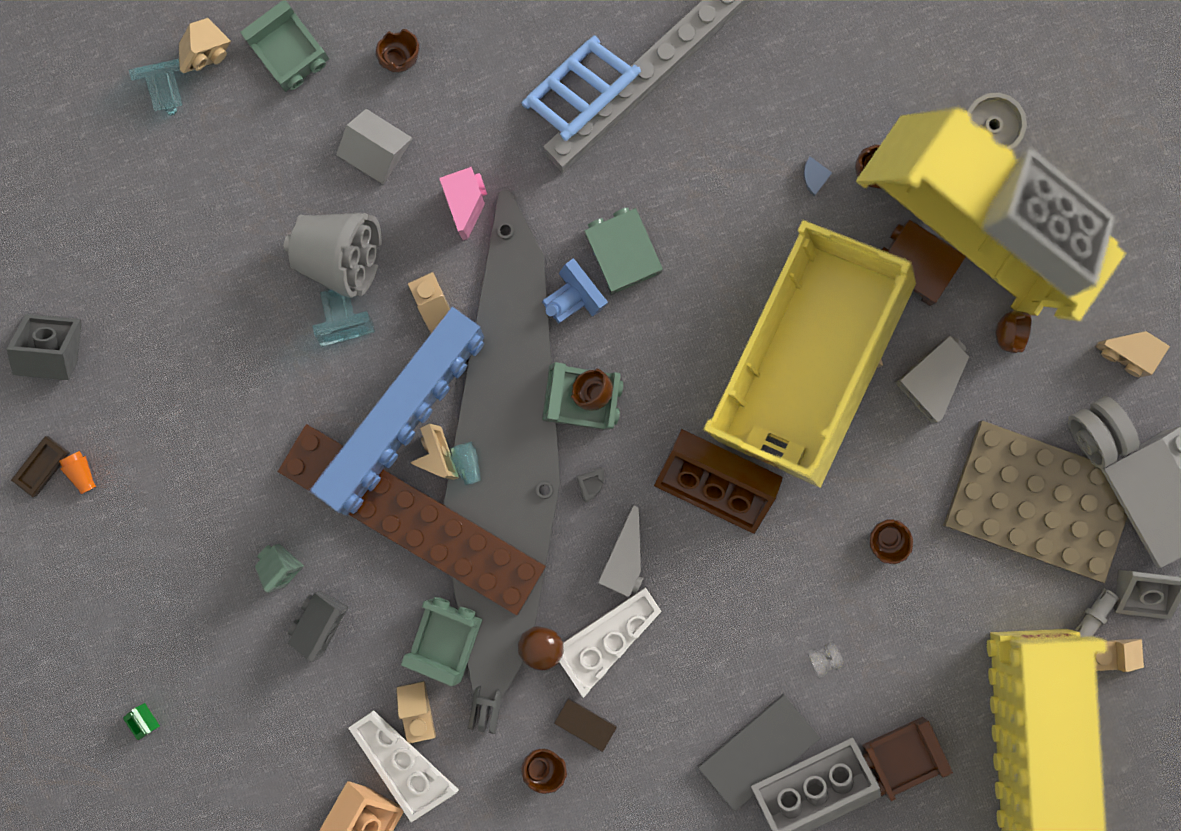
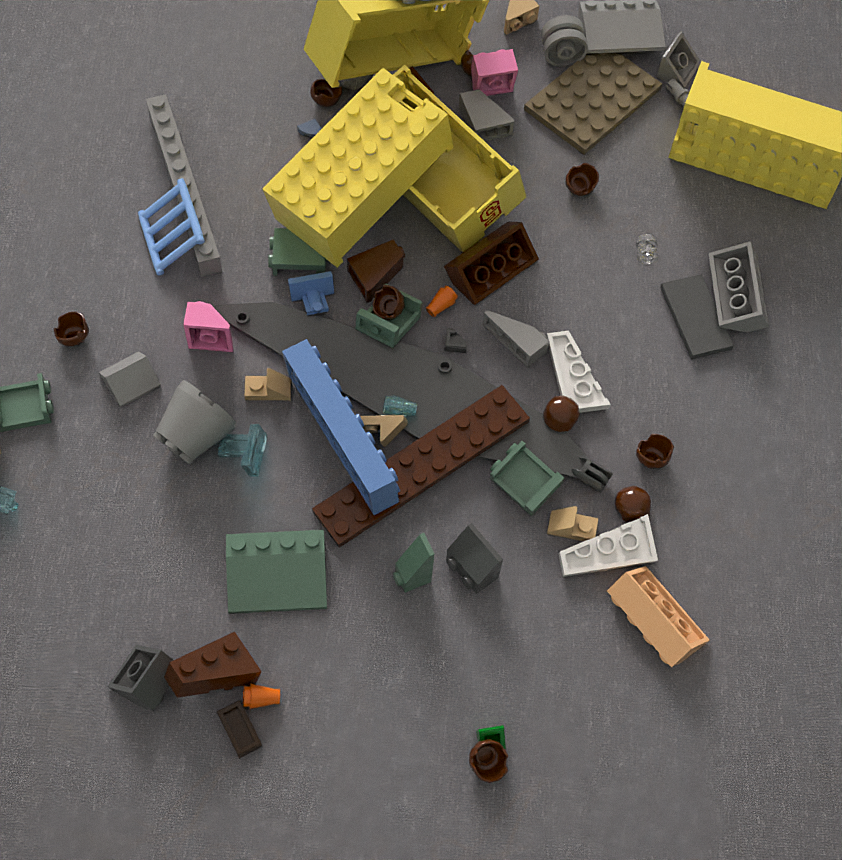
camera: 70 degrees left, 25 degrees down
(76, 413) = (213, 667): none -> reddish brown wedge
(108, 731) = (488, 760): none -> reddish brown hair
(217, 421) = (276, 571): none -> sand green slope
(472, 768) = (632, 503): none -> reddish brown hair
(585, 724) = (630, 415): dark brown tile -> none
(635, 446) = (442, 300): none -> orange cone
(644, 350) = (375, 267): none -> reddish brown slope
(734, 275) = (358, 166): none -> light yellow piece
(906, 757) = (734, 225): reddish brown panel -> none
(1004, 364) = (494, 72): none -> bright pink slope

